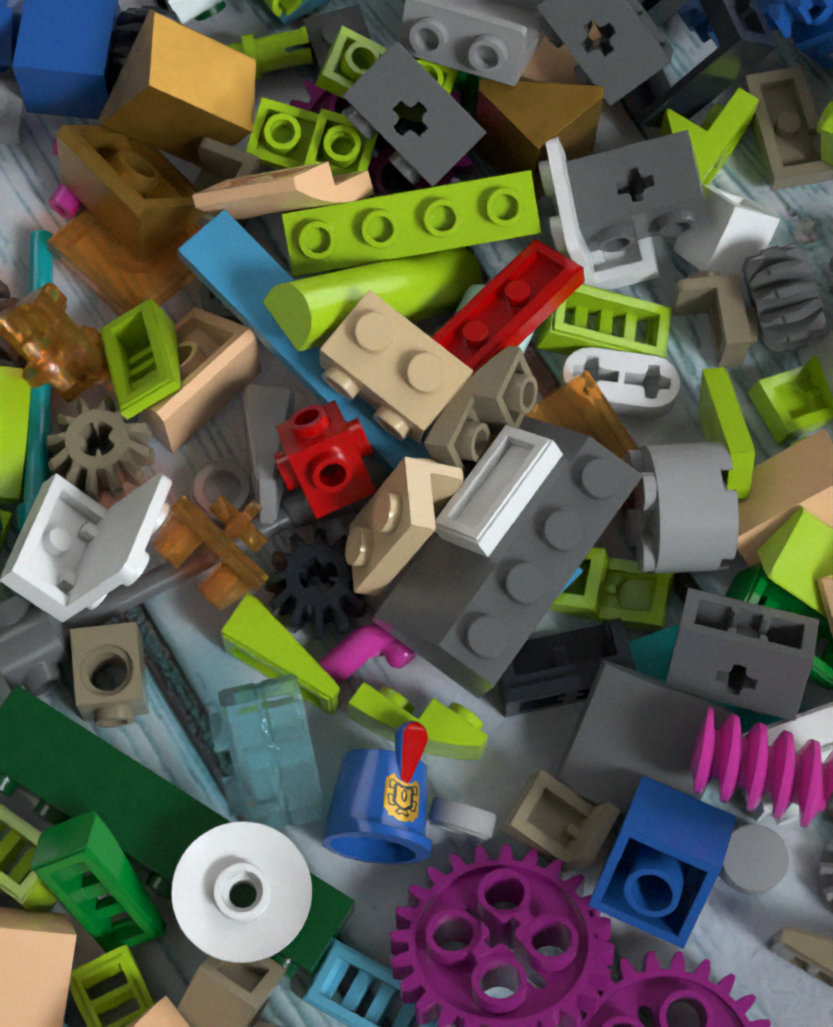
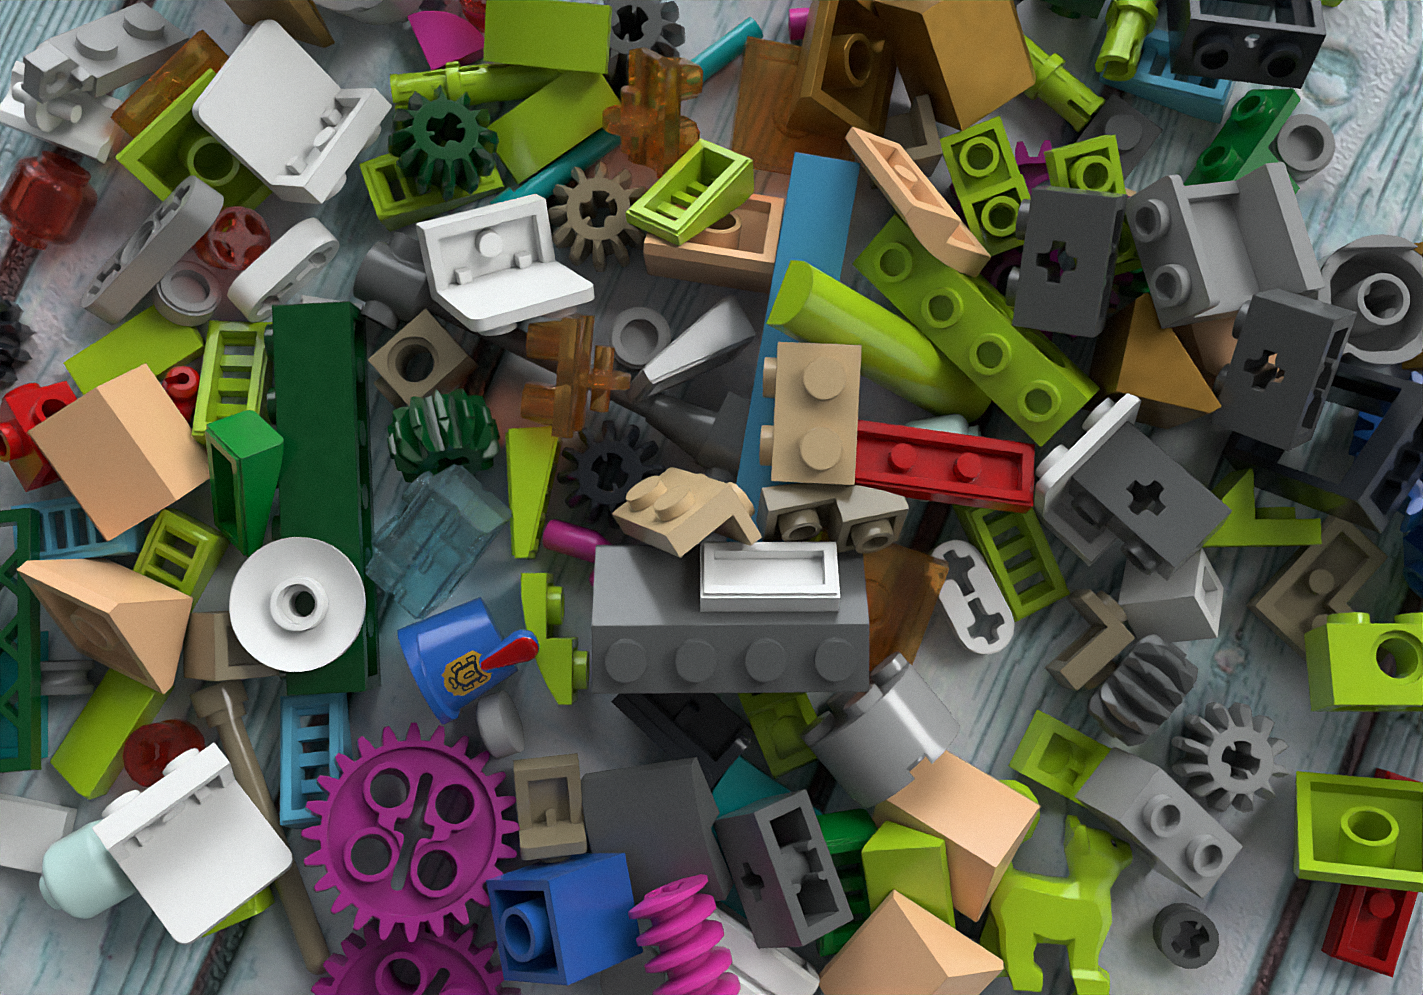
camera: 60 degrees right, 15 degrees up
(184, 689) = (443, 433): none -> dark green gear
(325, 457) = (698, 411): red brick -> none
(724, 422) = (982, 720): lime tile -> none

